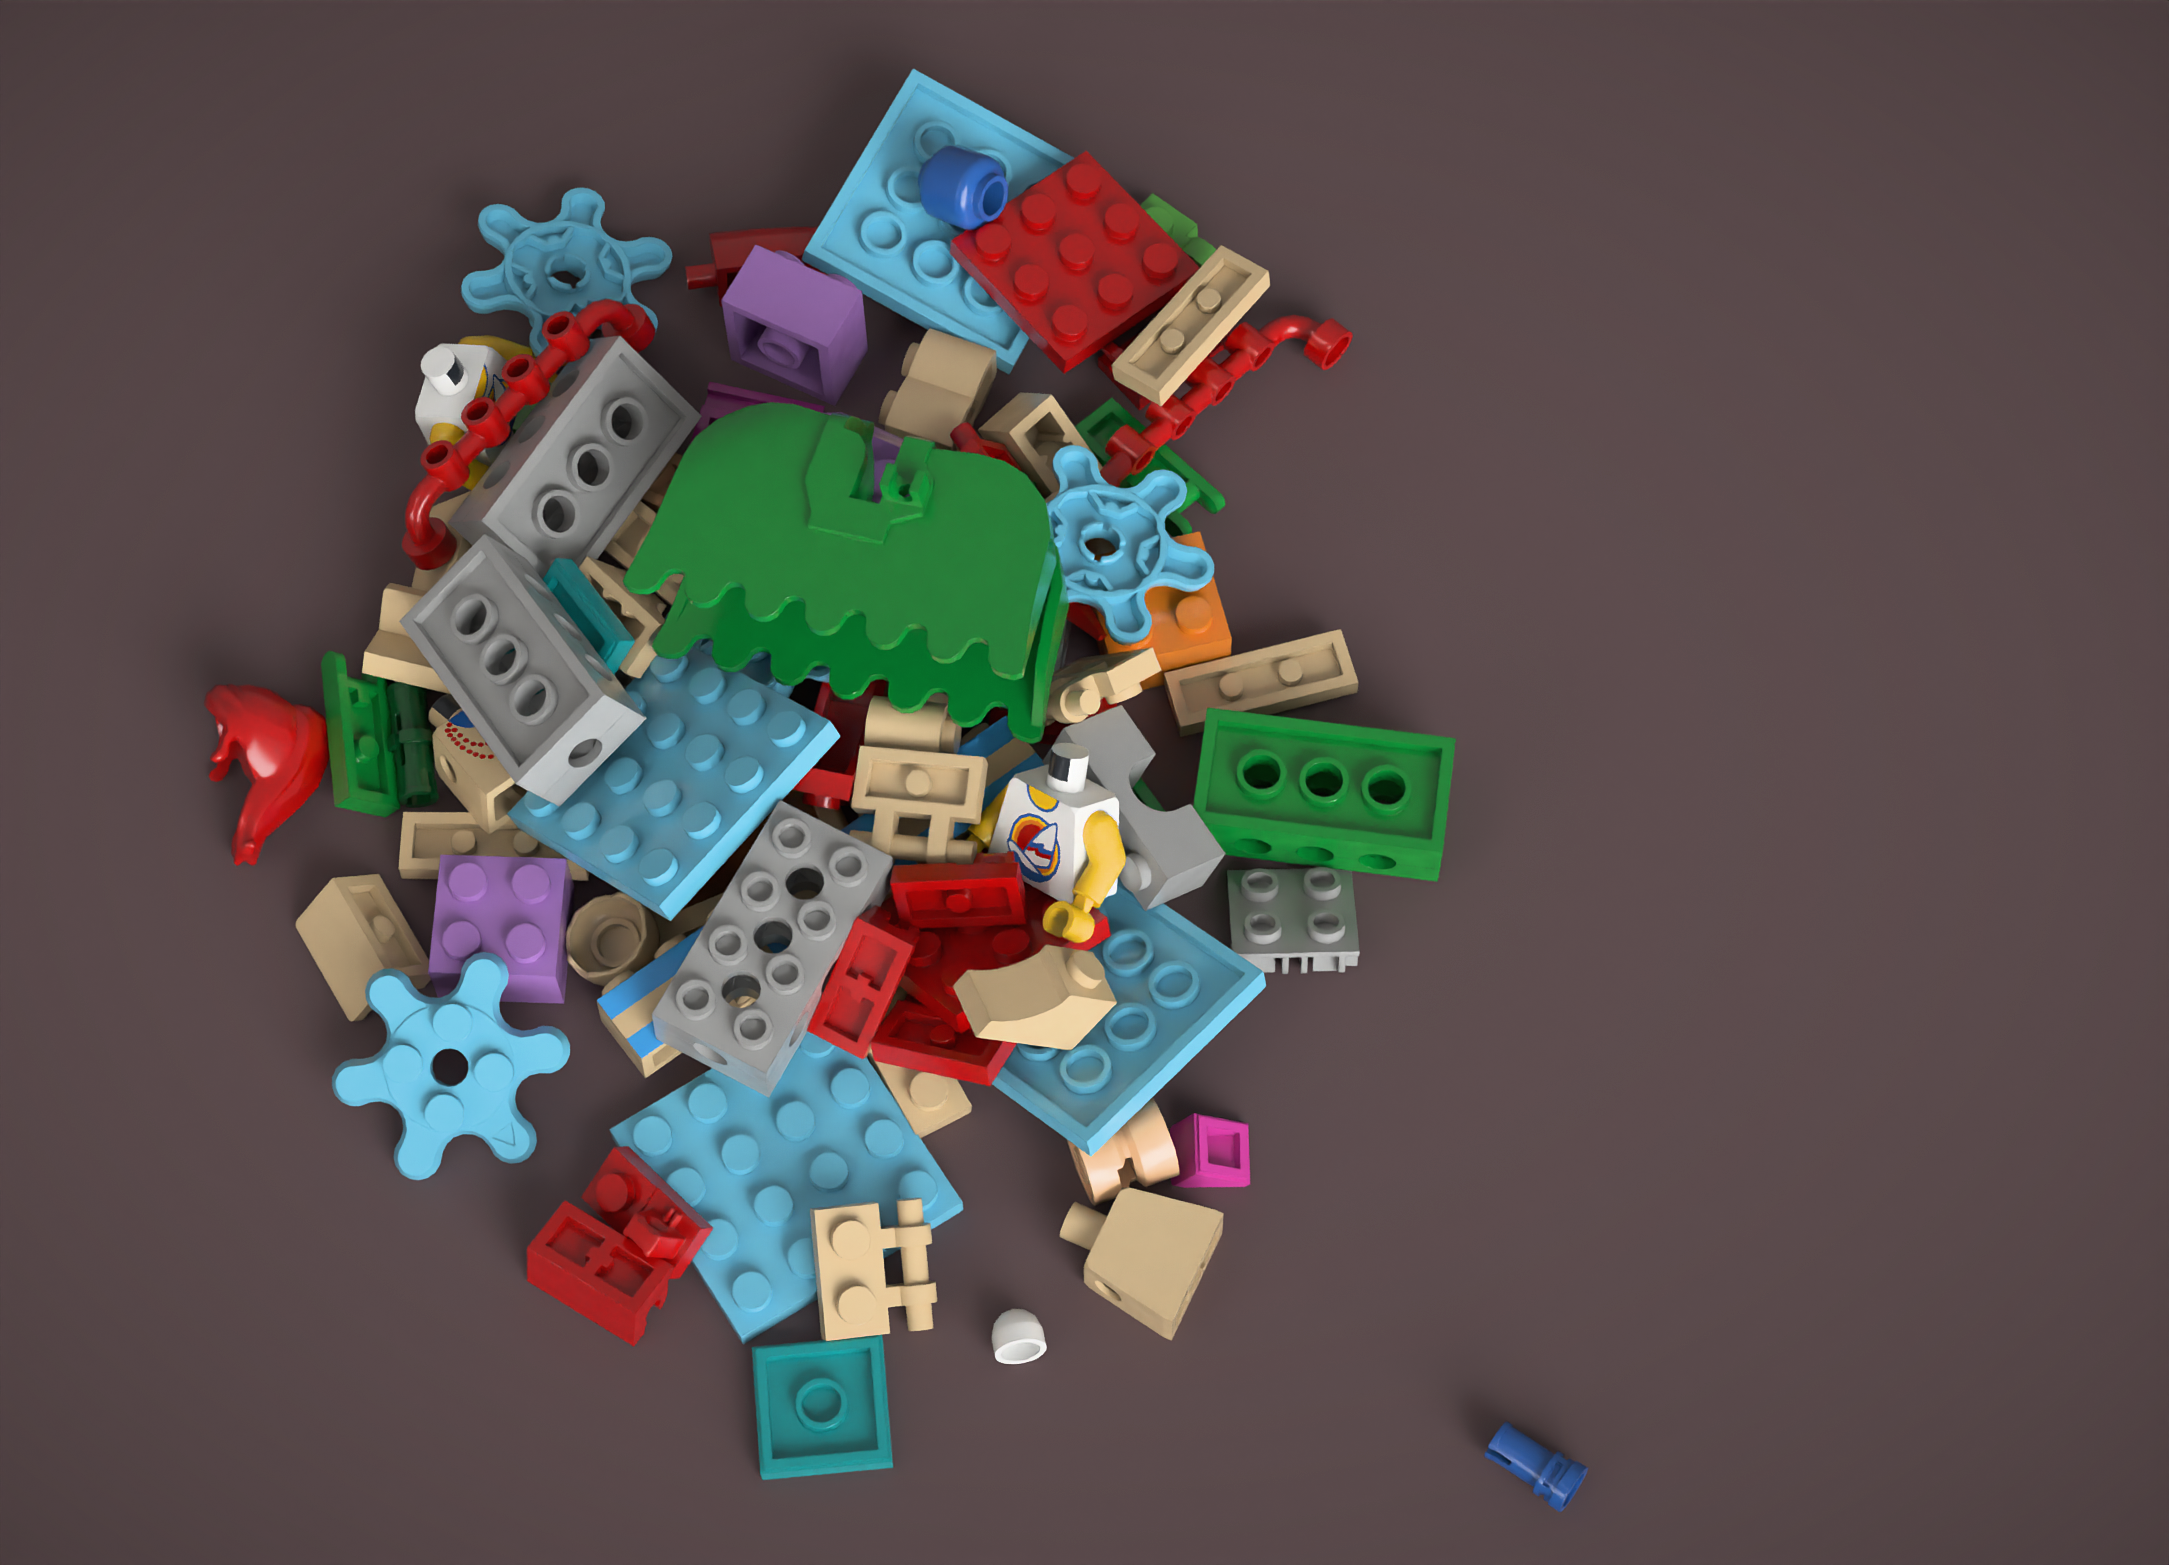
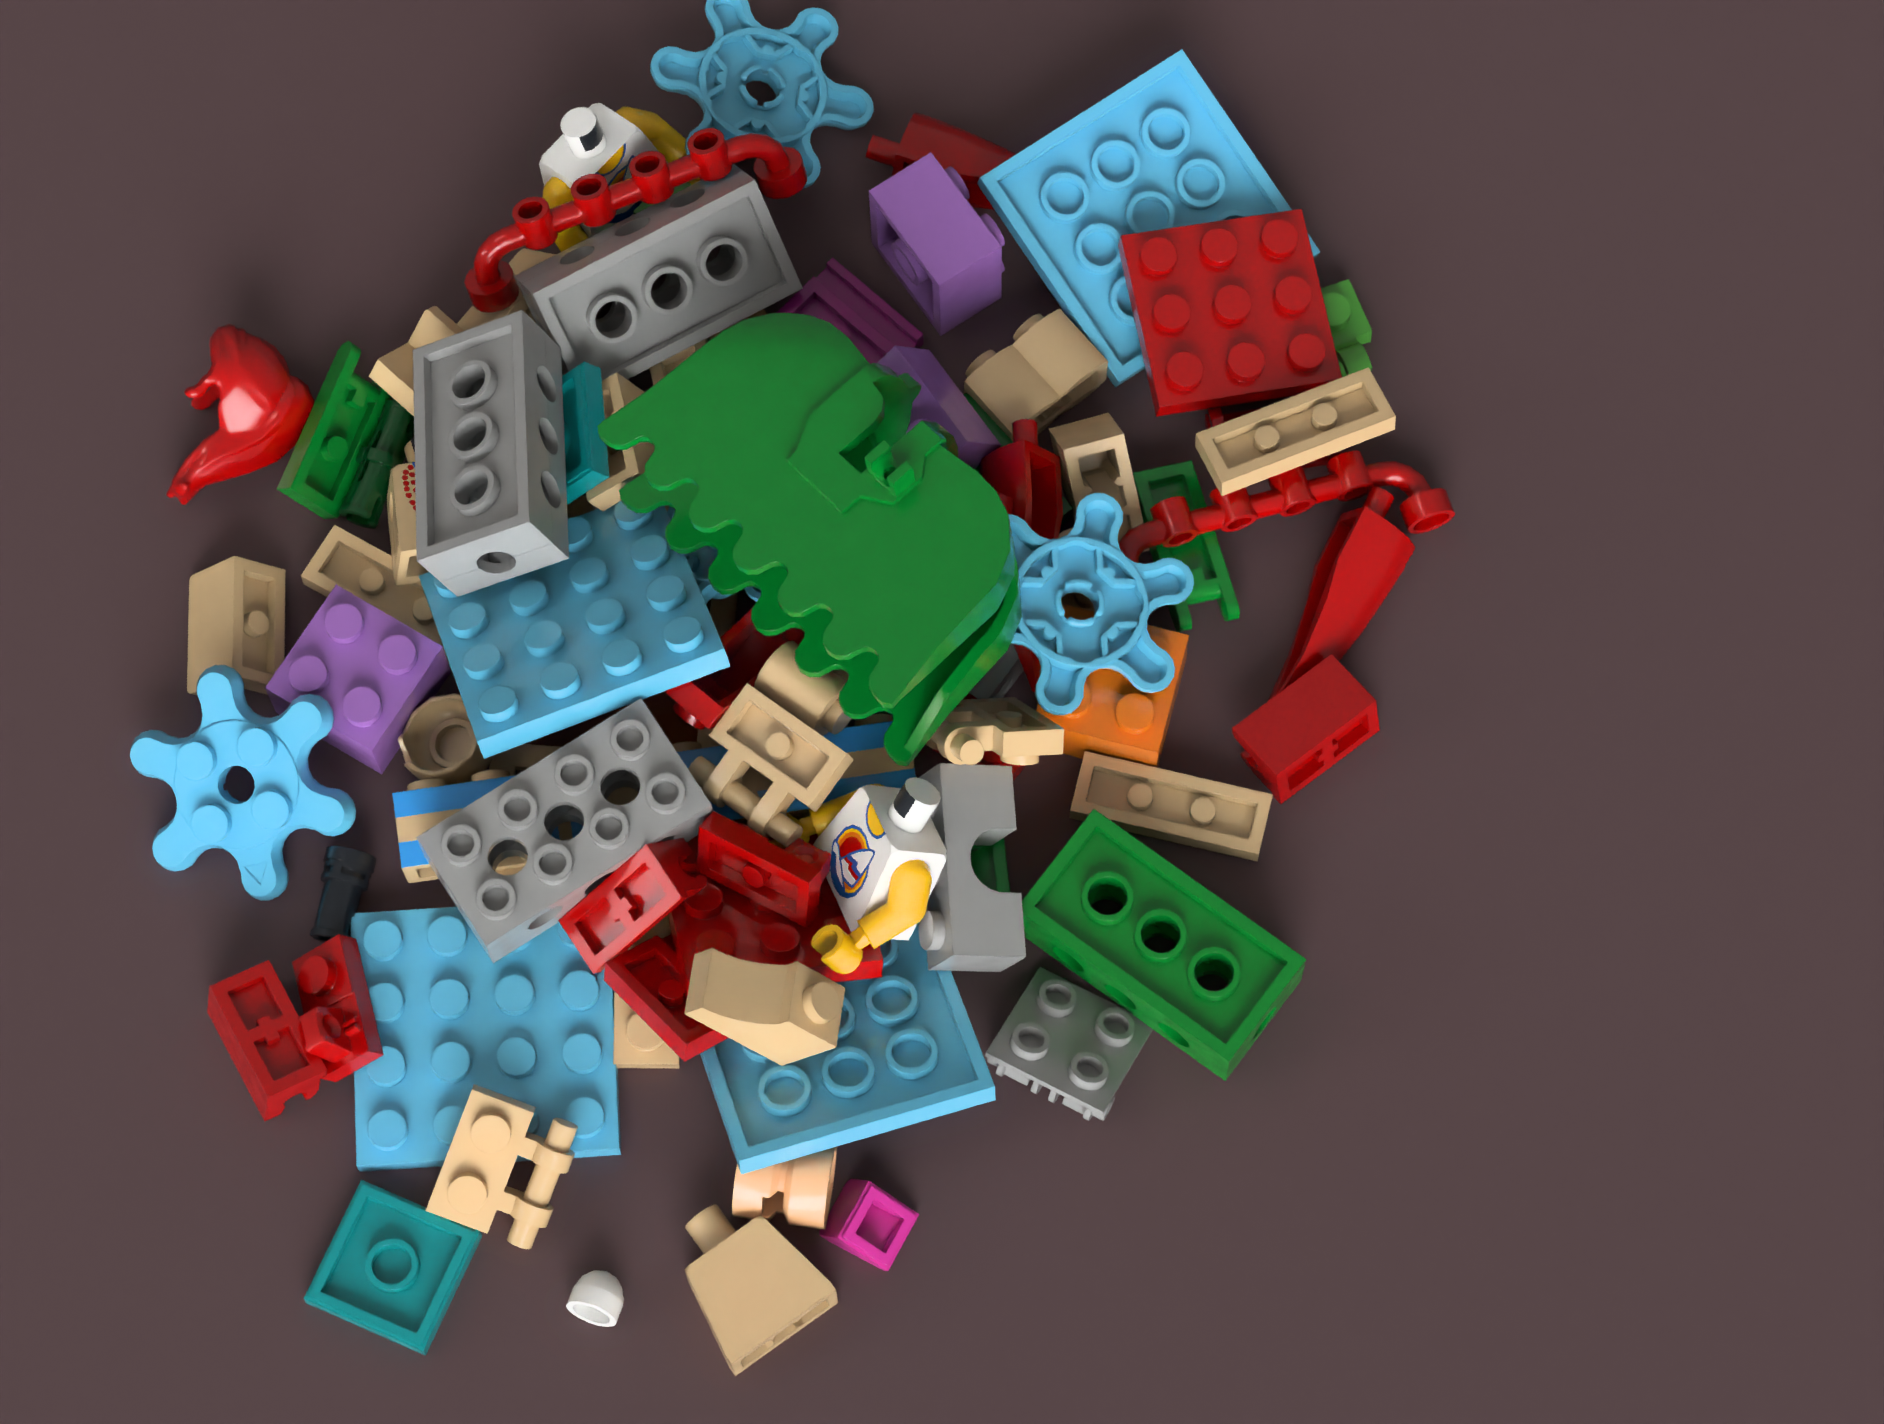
camera: 30 degrees right, 5 degrees up
(587, 1103) = (344, 880): none -> black pin
(962, 187) = (1157, 190): blue head -> none
(1298, 440) = (1347, 585): none -> red piece
(1335, 563) = (1307, 728): none -> red hinge

